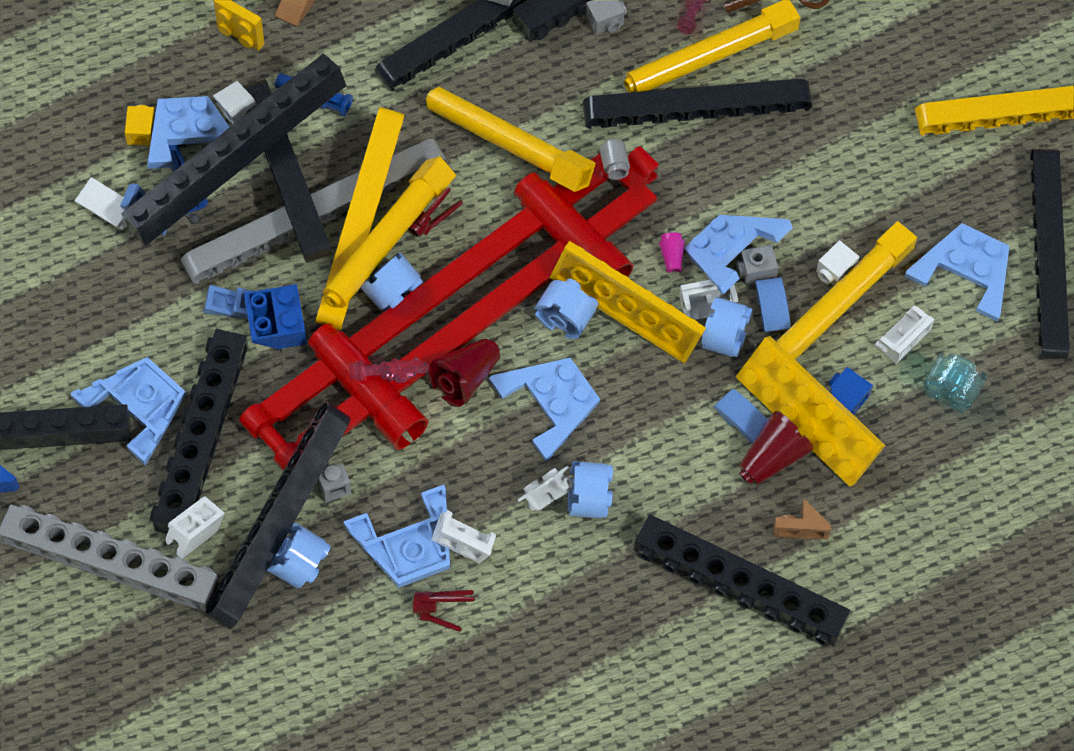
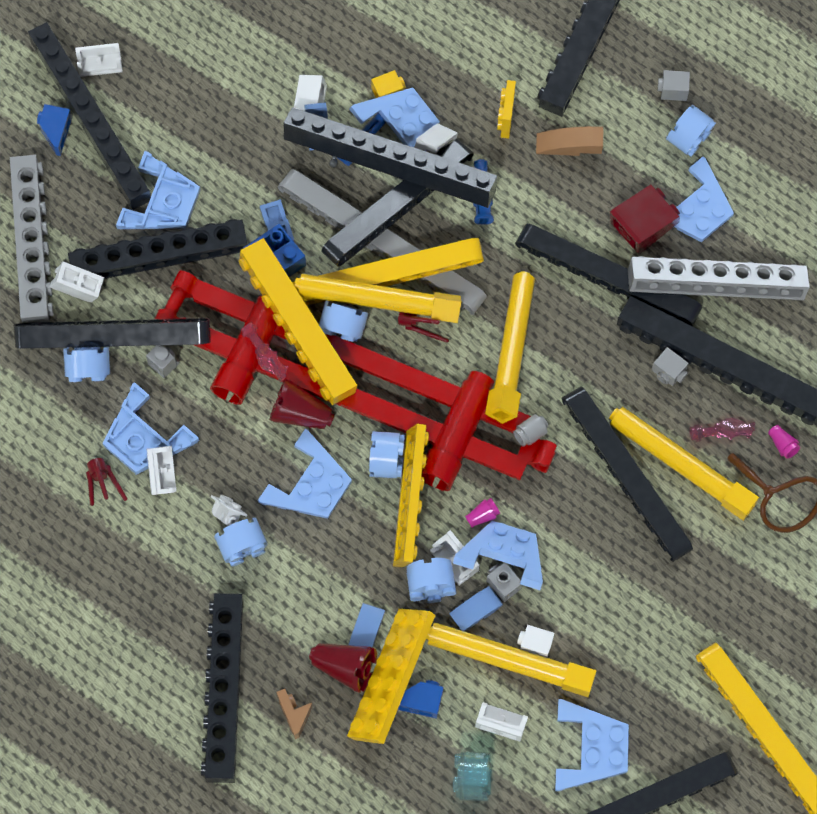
camera: 65 degrees right, 5 degrees up
(373, 320) = (297, 322): none -> yellow brick

